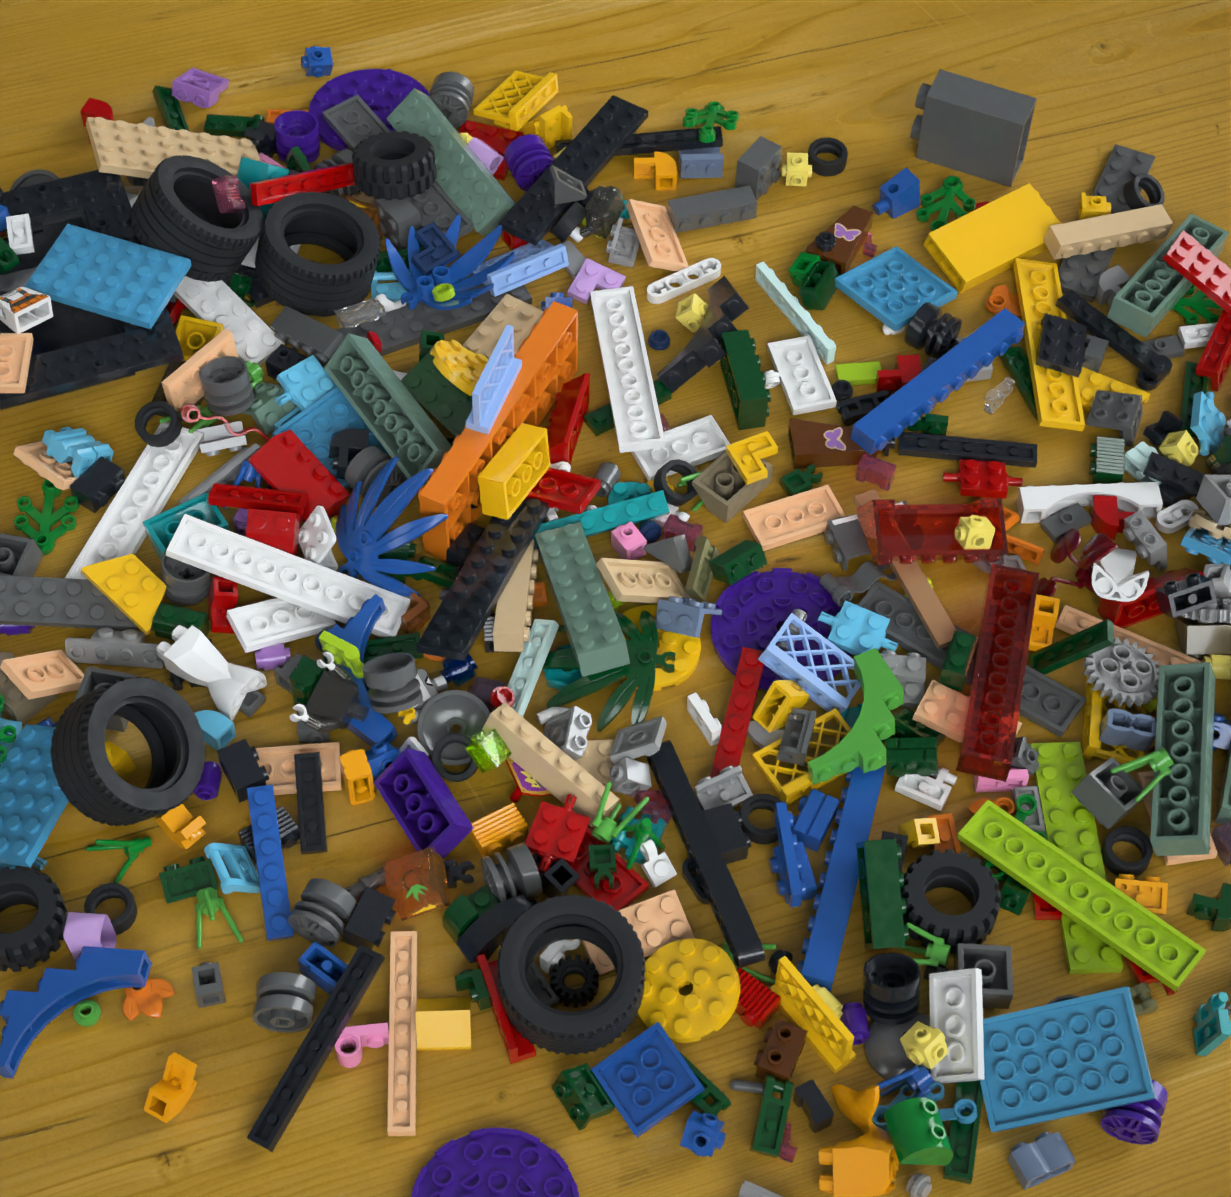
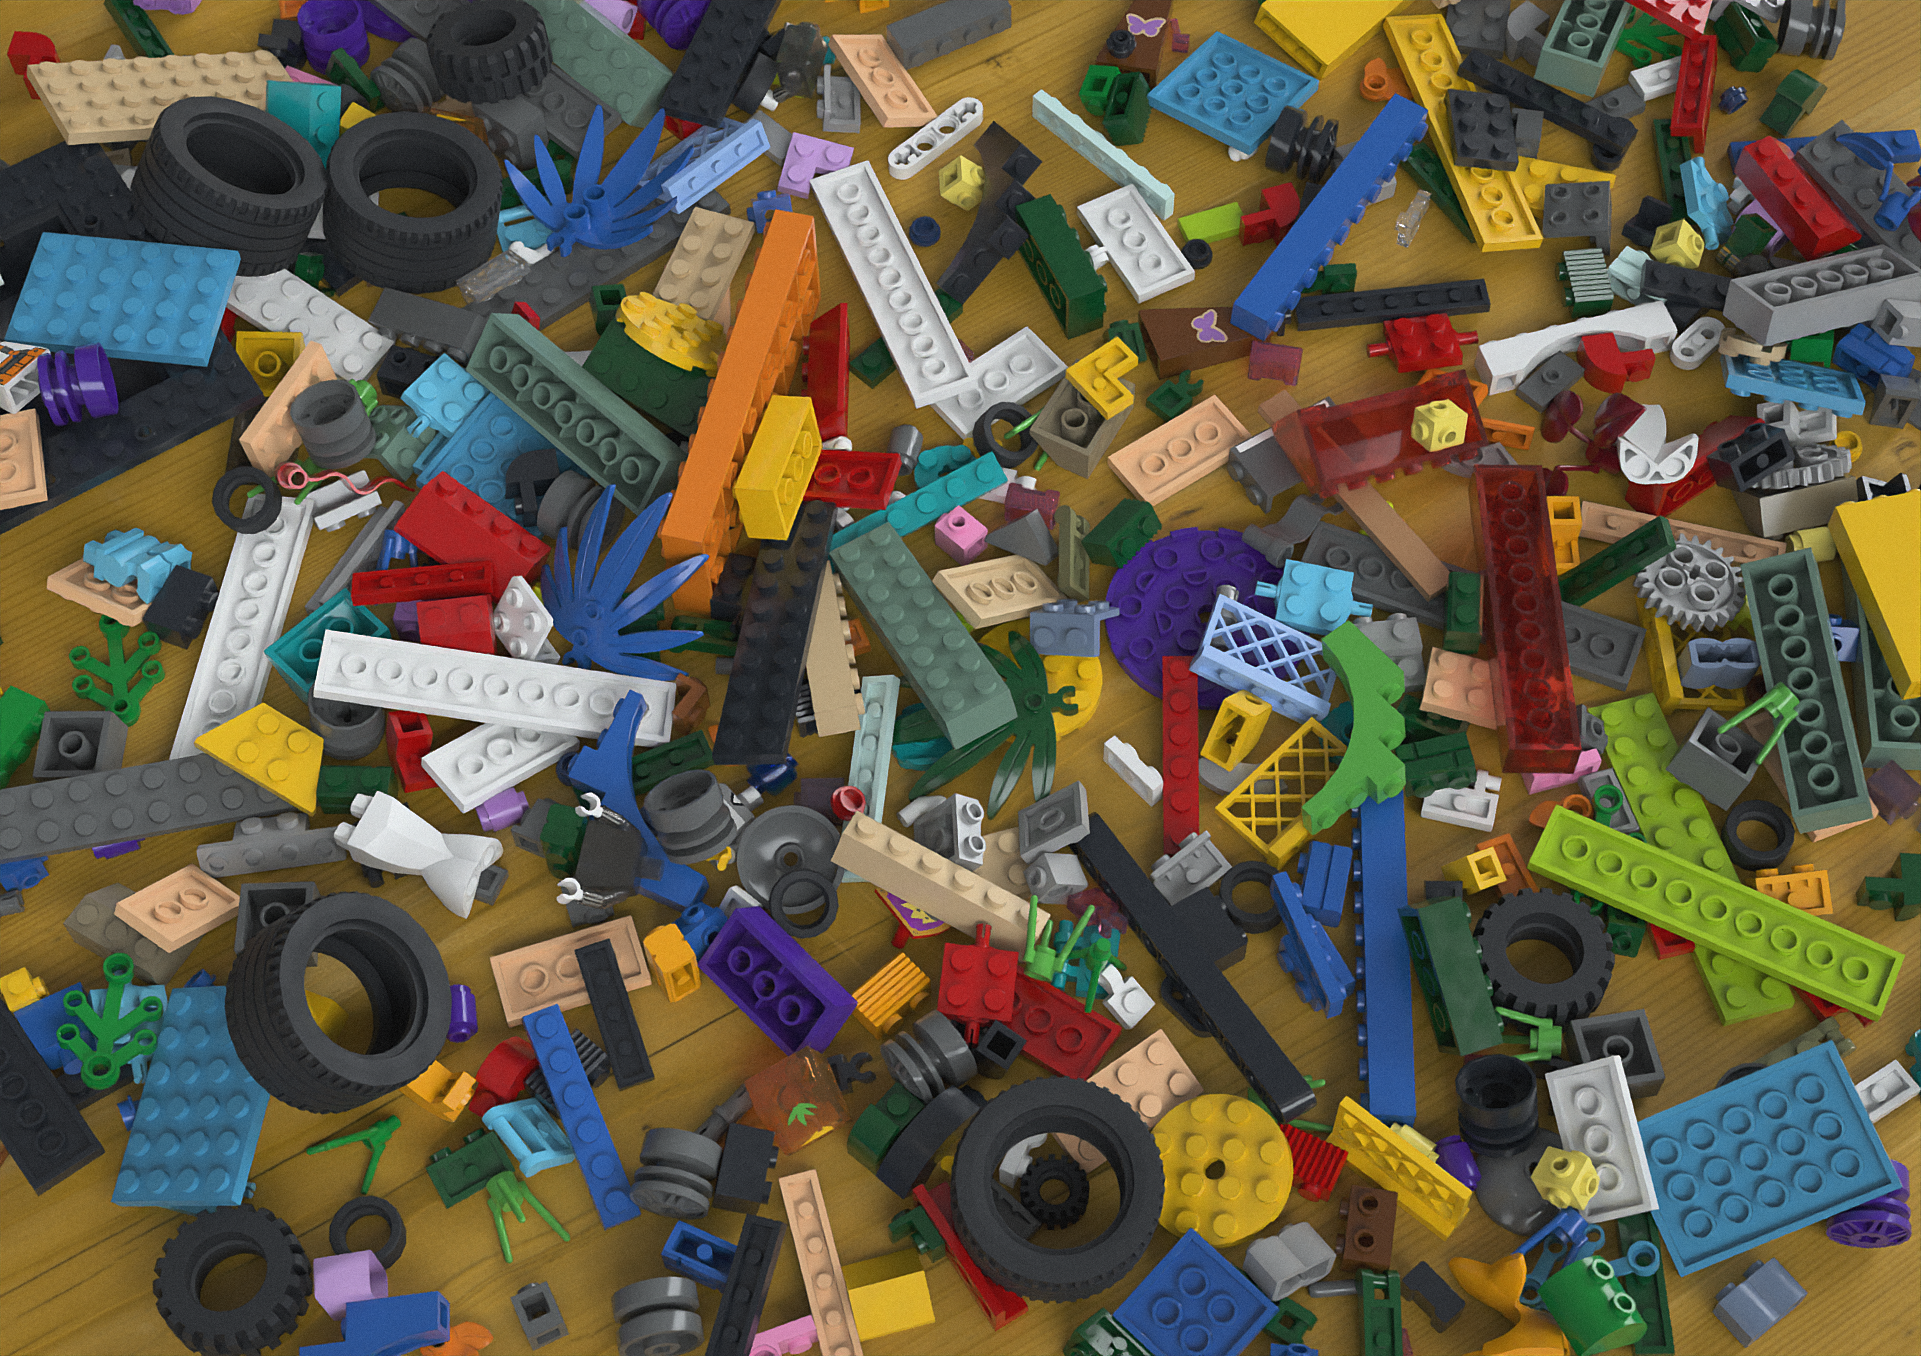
camera: 10 degrees left, 5 degrees up
(60, 322) = (70, 386): none -> dark purple wheel
(216, 728) = (450, 933): medium azure brick -> none
(225, 824) = (503, 1074): none -> red brick
(228, 194) = (267, 142): clear pink piece -> none
(230, 125) = (232, 32): dark green plate -> none
(241, 768) = (506, 988): black brick -> none
(316, 180) = (368, 101): red plate -> none
(343, 653) = (610, 789): lime plate -> none
(437, 251) = (582, 163): dark blue plate -> none
(443, 292) = (606, 223): lime tile -> none
(488, 750) = (849, 885): clear neon green brick -> none
(494, 384) = (728, 353): light blue fence -> none
(565, 187) = (740, 36): dark grey slope -> none
(602, 862) = (1050, 1011): dark green plate -> none
(650, 531) = (987, 512): dark blue plate -> none
(720, 1059) = (1288, 1260): none -> light grey brick
(773, 961) = (1330, 1098): black plate -> none
(780, 436) = (1130, 335): none -> dark green bracket
(797, 736) = (1272, 770): dark grey hinge -> none
(862, 406) = (1235, 270): black plate -> none
(1146, 539) = (1670, 385): light grey plate -> none
(1167, 1041) = (1886, 1090): none -> white plate

